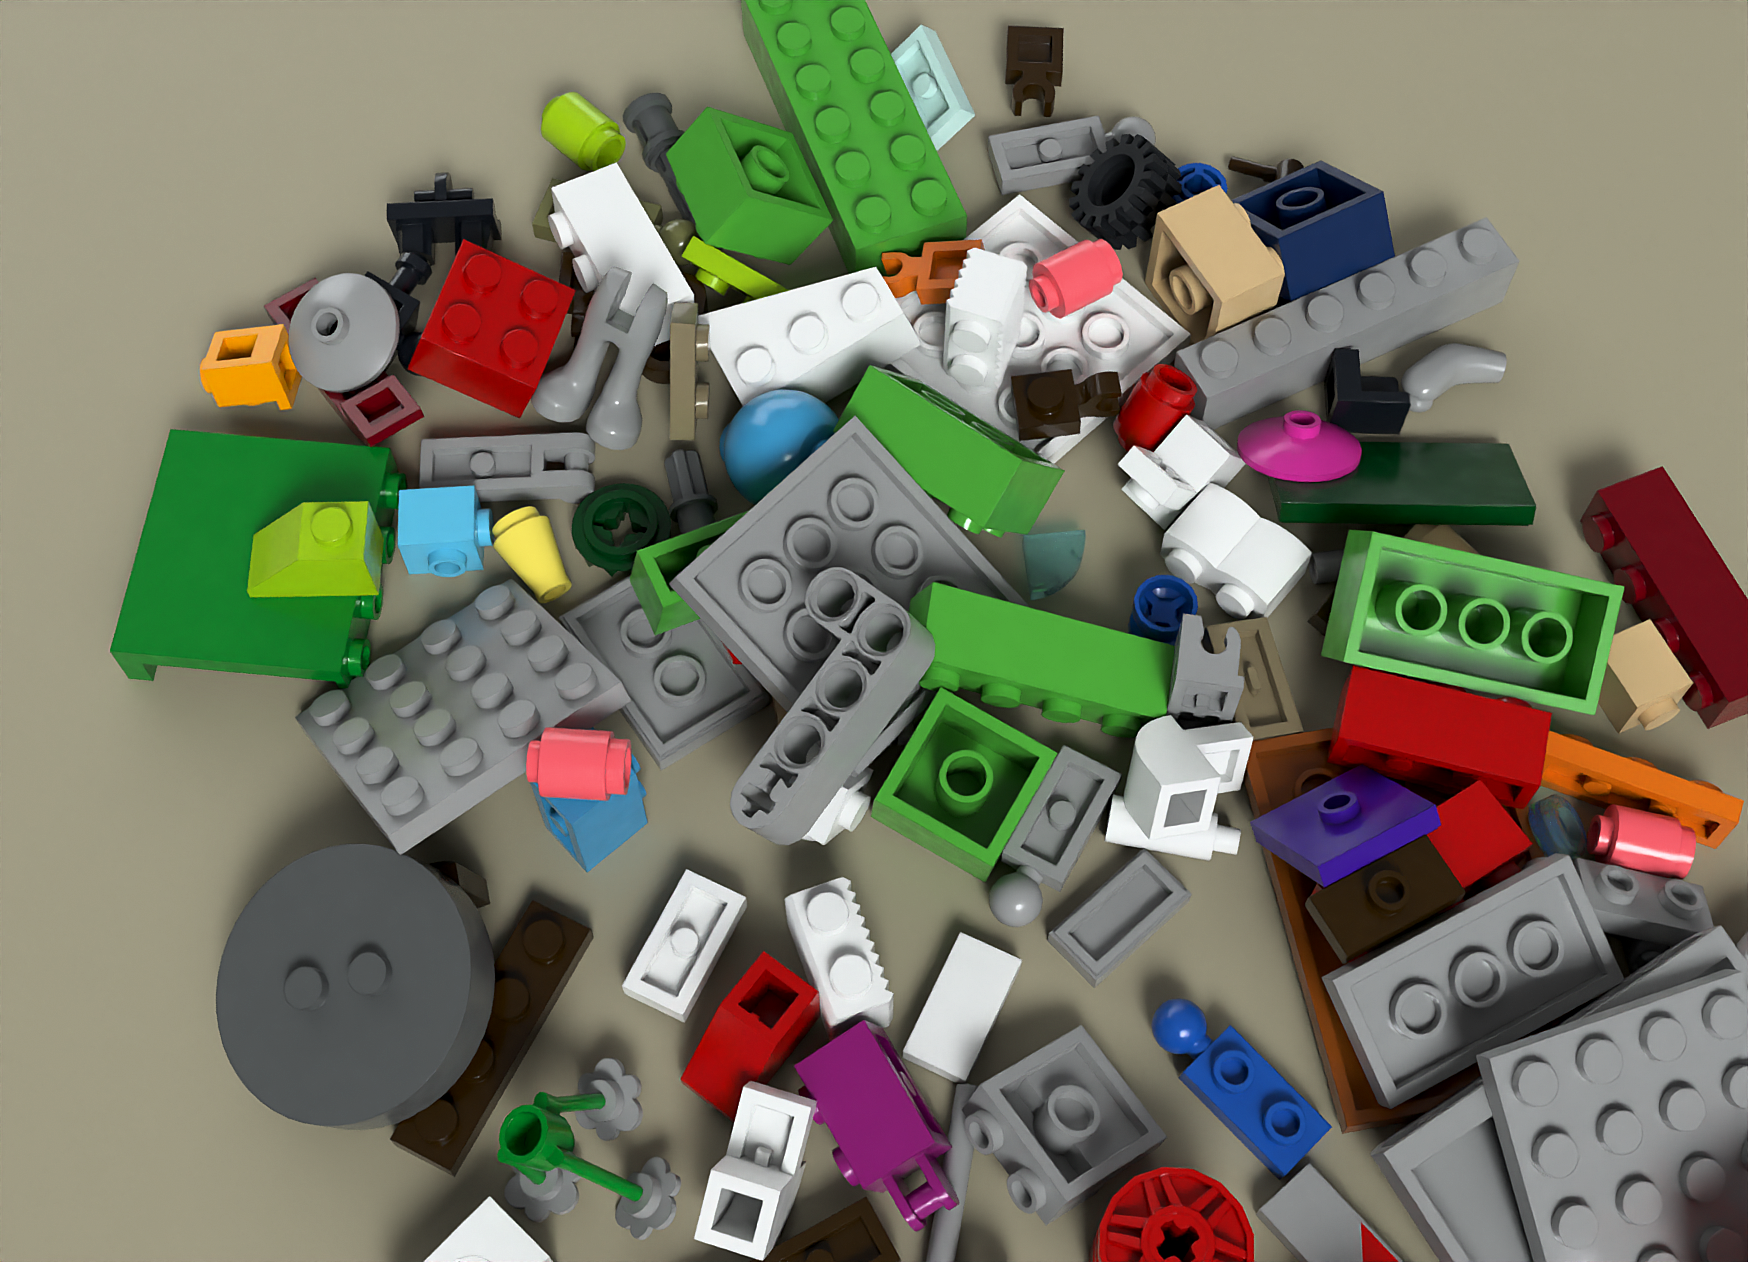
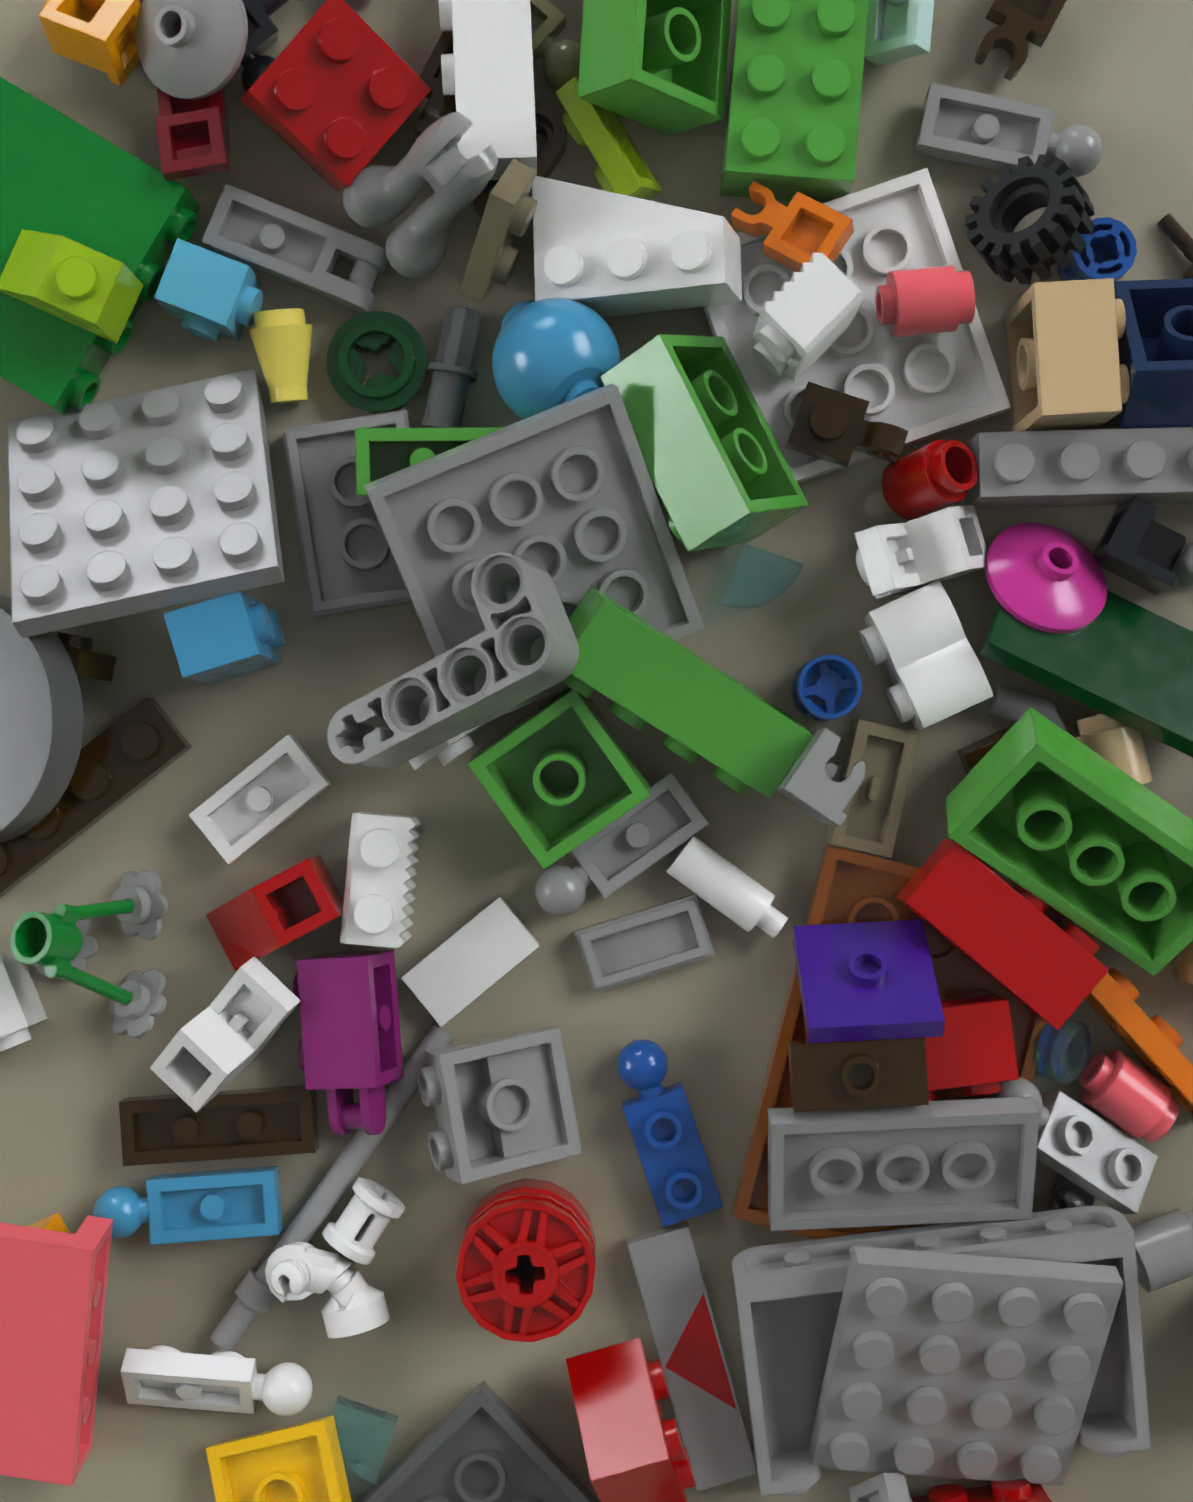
camera: 25 degrees right, 25 degrees up
(579, 764) = (204, 634): coral brick -> none
(1181, 772) = (746, 852): white brick -> none

